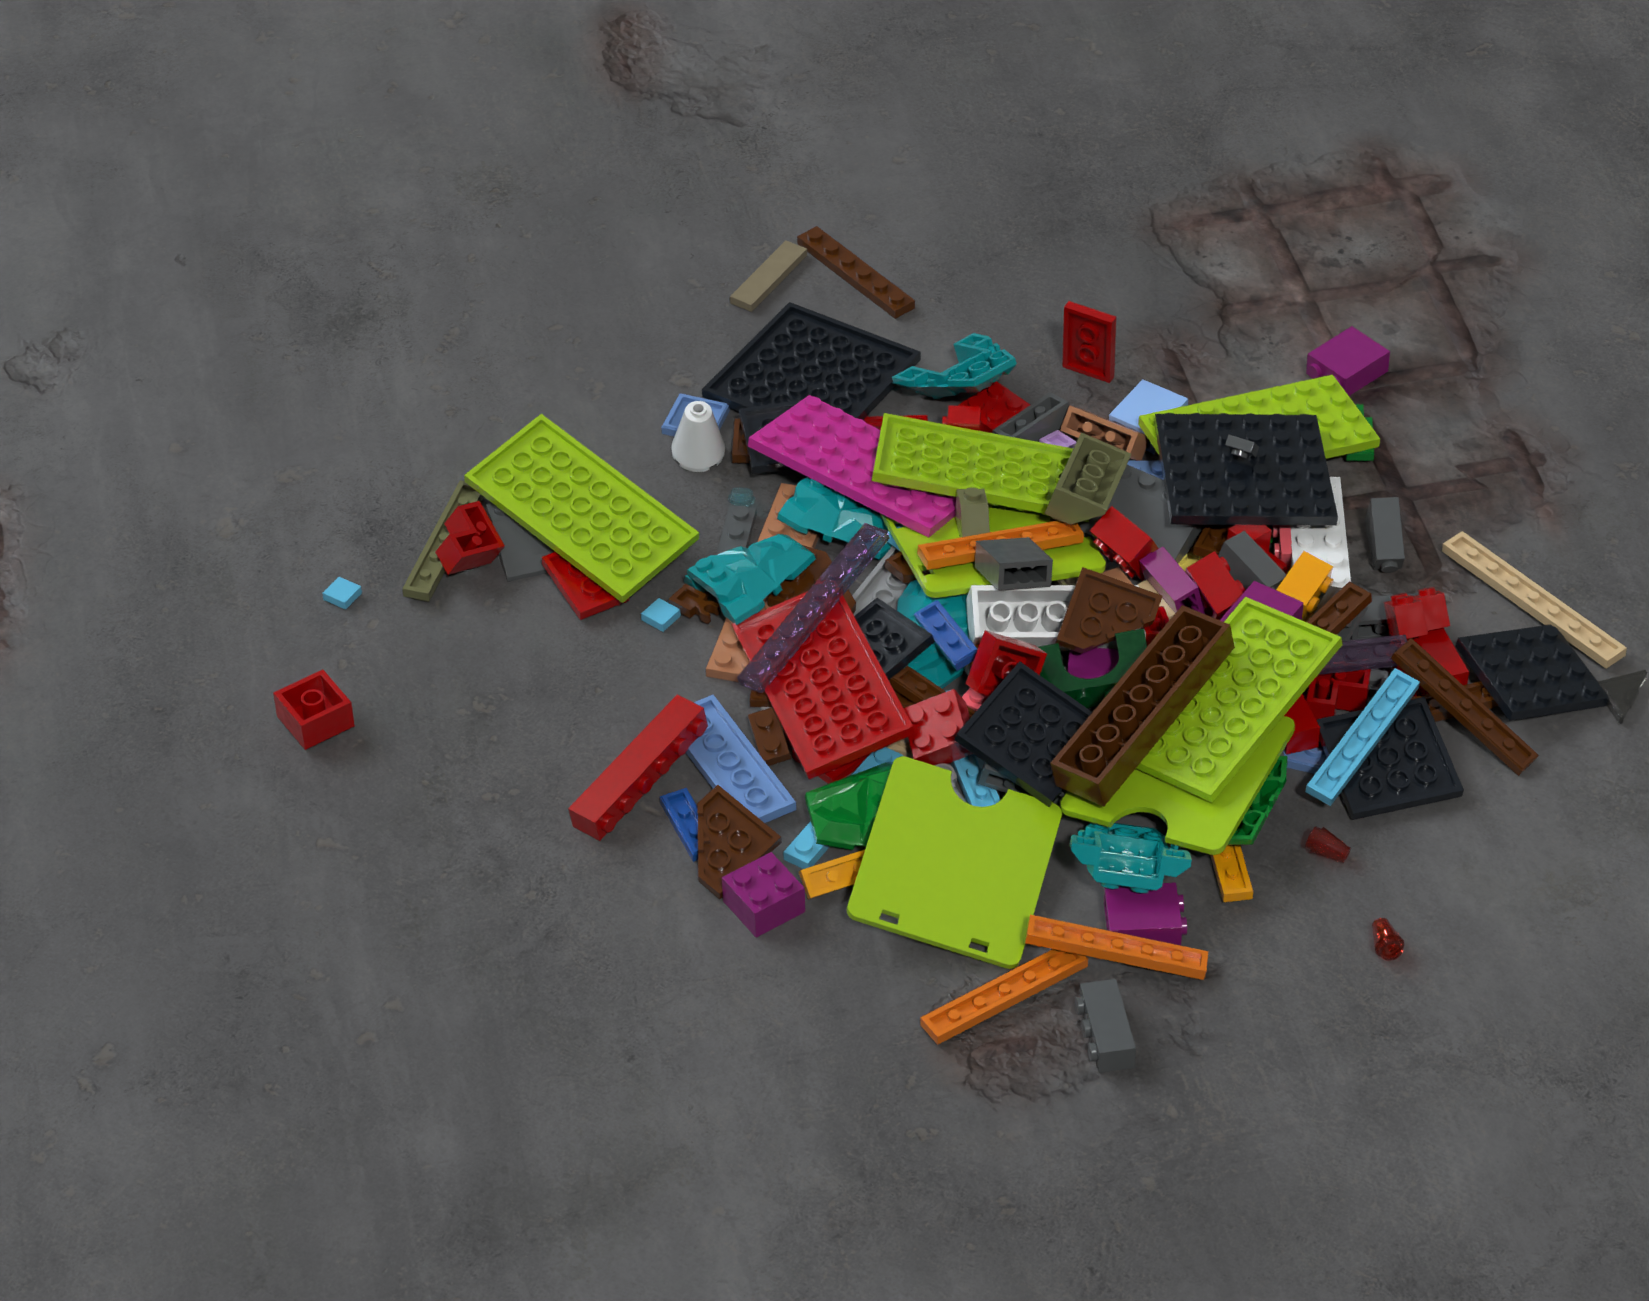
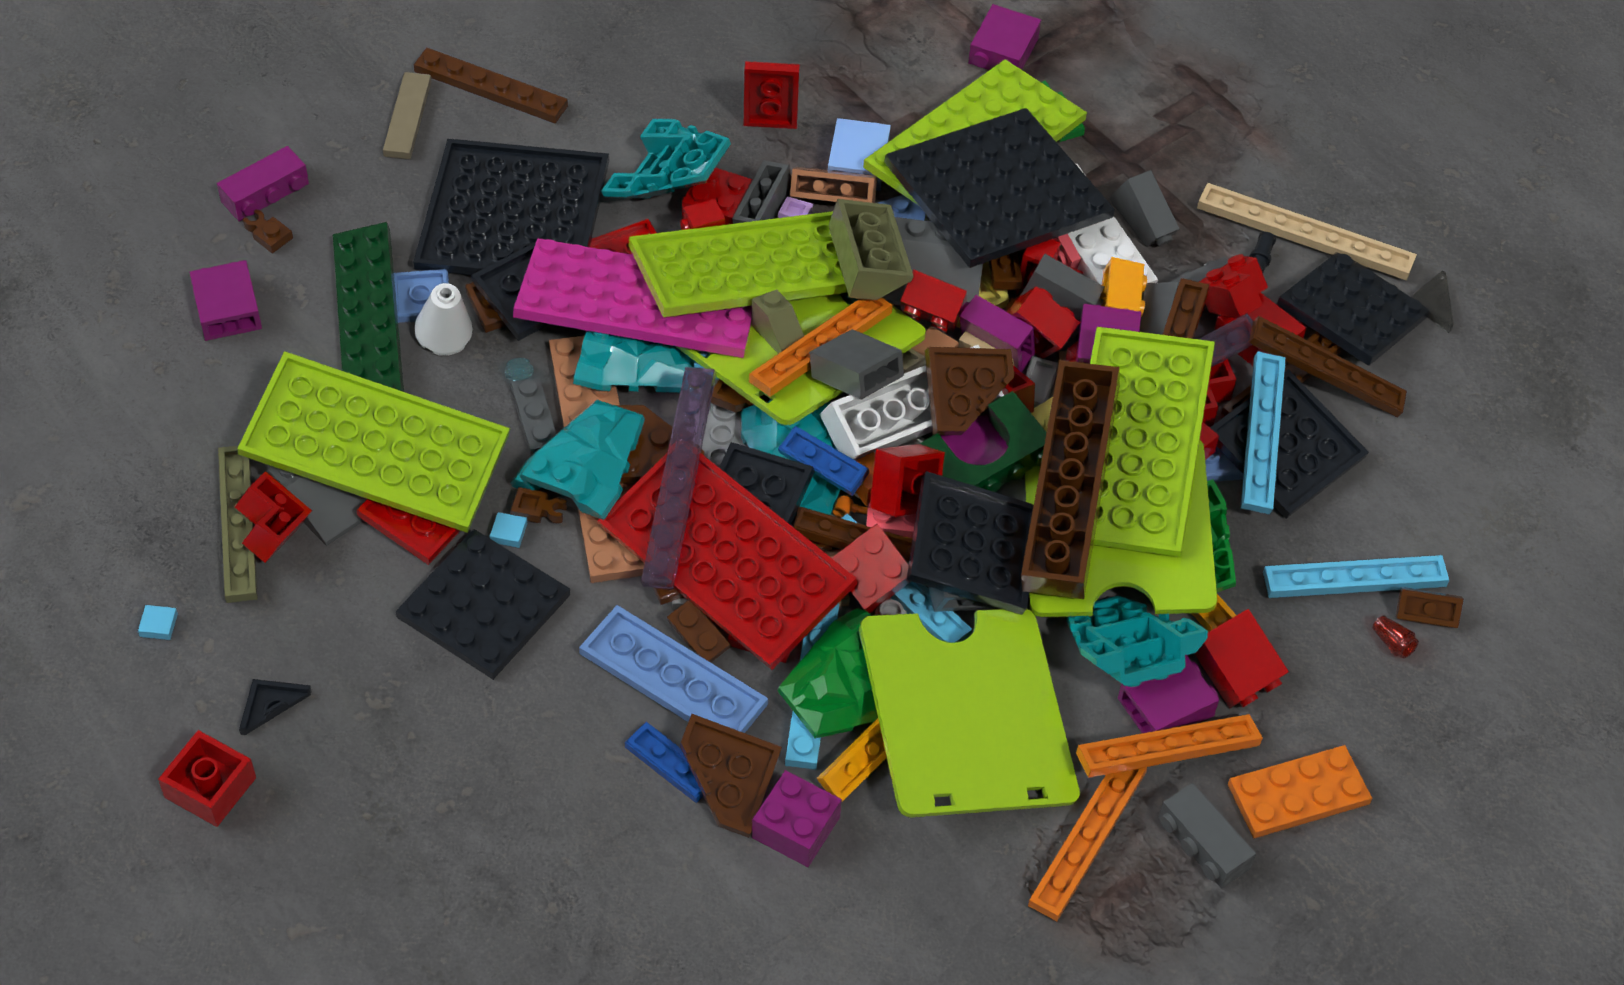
camera: 30 degrees left, 10 degrees up
(396, 675) = (269, 700): none -> black tile
(530, 373) = (225, 300): none -> magenta brick
(597, 334) = (268, 233): none -> reddish brown plate
(607, 661) = (483, 603): none -> black plate
(613, 293) = (263, 183): none -> magenta brick
(638, 767) = (591, 721): red brick -> none
(646, 410) = (368, 305): none -> dark green plate
(956, 682) = (845, 505): none -> orange hand
(1216, 1025) = (1299, 791): none -> orange plate
(1224, 904) = (1241, 660): none -> red brick
(1241, 447) = (994, 167): dark grey plate -> none
(1327, 845) = (1283, 553): clear red cone -> none
(1383, 882) = (1355, 576): none -> medium azure plate
(1433, 926) = (1429, 607): none -> reddish brown plate
(1472, 607) = (1263, 249): none -> black pin

